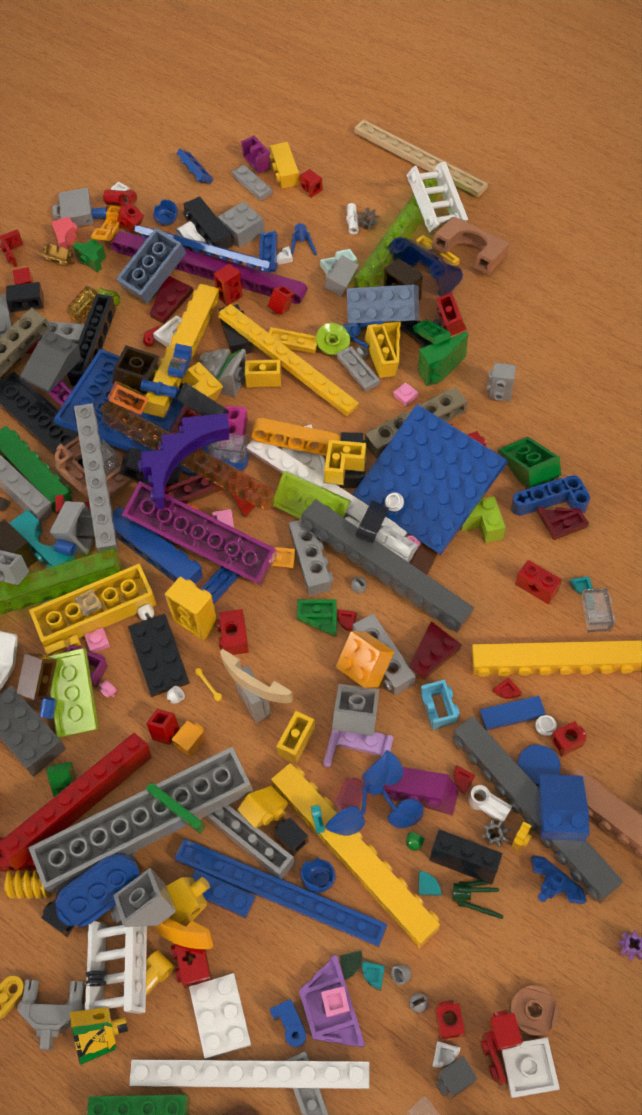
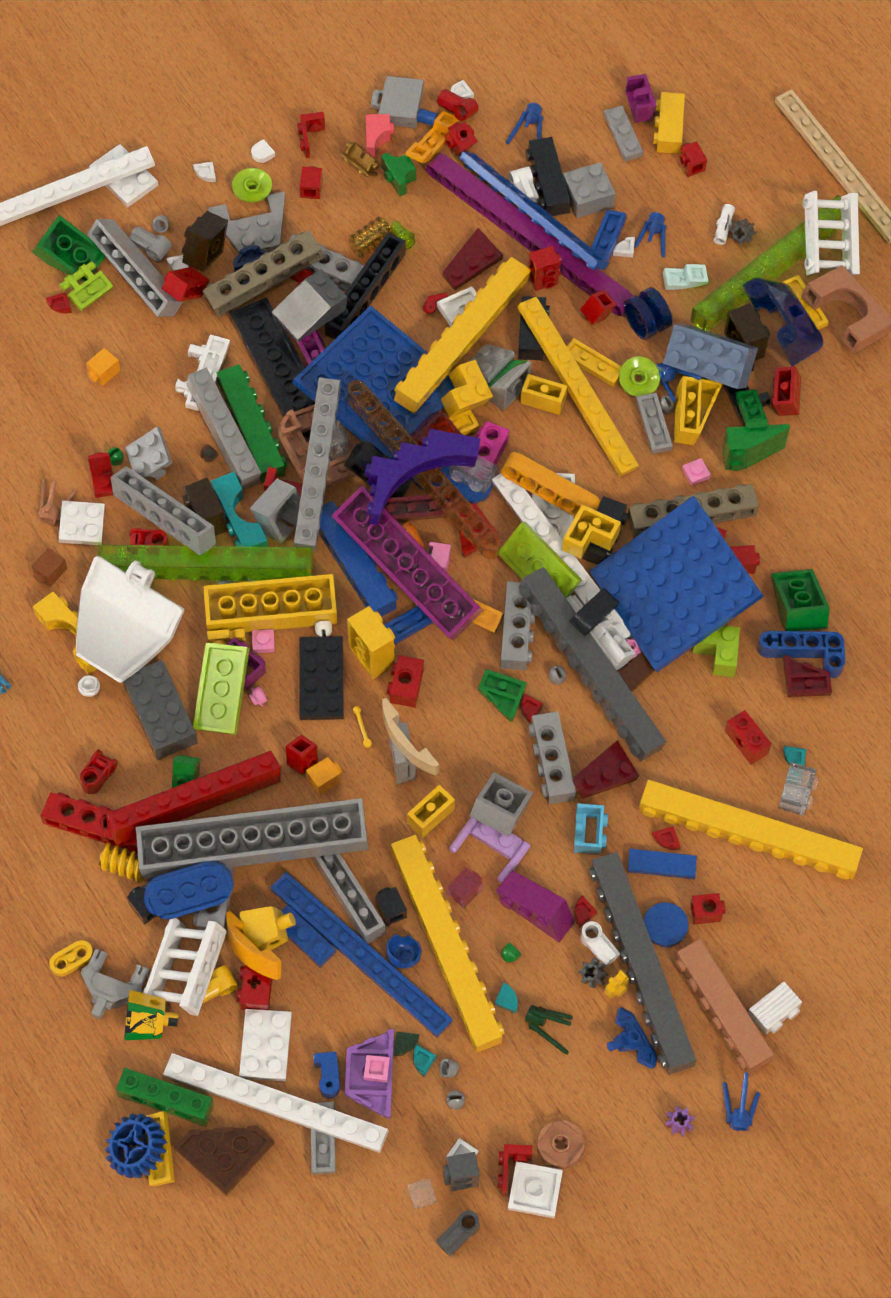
camera: 15 degrees right, 5 degrees up
(24, 296) = (306, 205): black brick -> none
(36, 676) = (191, 659): brick -> none
(47, 707) = (192, 695): blue hinge -> none
(65, 547) = (261, 530): blue hinge -> none
(88, 602) = (266, 599): clear tile -> none
(96, 978) = (162, 969): black bush -> none
(126, 397) = (377, 378): orange torso -> none
(134, 366) = (401, 347): dark brown brick -> none
(144, 901) = (229, 914): light grey slope -> none
(151, 265) = (463, 215): sand blue brick -> none
(159, 388) = (418, 381): blue pin -> none
(165, 212) = (504, 144): blue hair -> none
(175, 694) = (325, 726): white hinge -> none
(175, 808) = (287, 837): green tile -> none
(179, 189) = (531, 116): none -> blue plant
(180, 361) = (453, 354): blue leg -> none
(194, 166) = (561, 88): blue plate -> none
(199, 401) = (460, 413): black beam -> none
(263, 807) = (373, 867): yellow brick -> none
(317, 818) = (421, 898): teal tile -> none
(321, 291) = (647, 313): none -> clear blue wheel
(341, 275) = (682, 296): light grey brick -> none
(364, 659) = (529, 756): light orange brick -> none
(384, 771) = (501, 874): blue plant -> none
(394, 502) = (628, 597): white plate -> none
(449, 1031) = (473, 1133): red brick -> none
(465, 857) = (553, 984): black brick -> none
(501, 382) = (807, 496): light grey brick -> none
(505, 1030) = (523, 1147): red brick -> none
(546, 725) = (689, 887): white plate -> none
(563, 808) = (666, 970): blue slope -> none

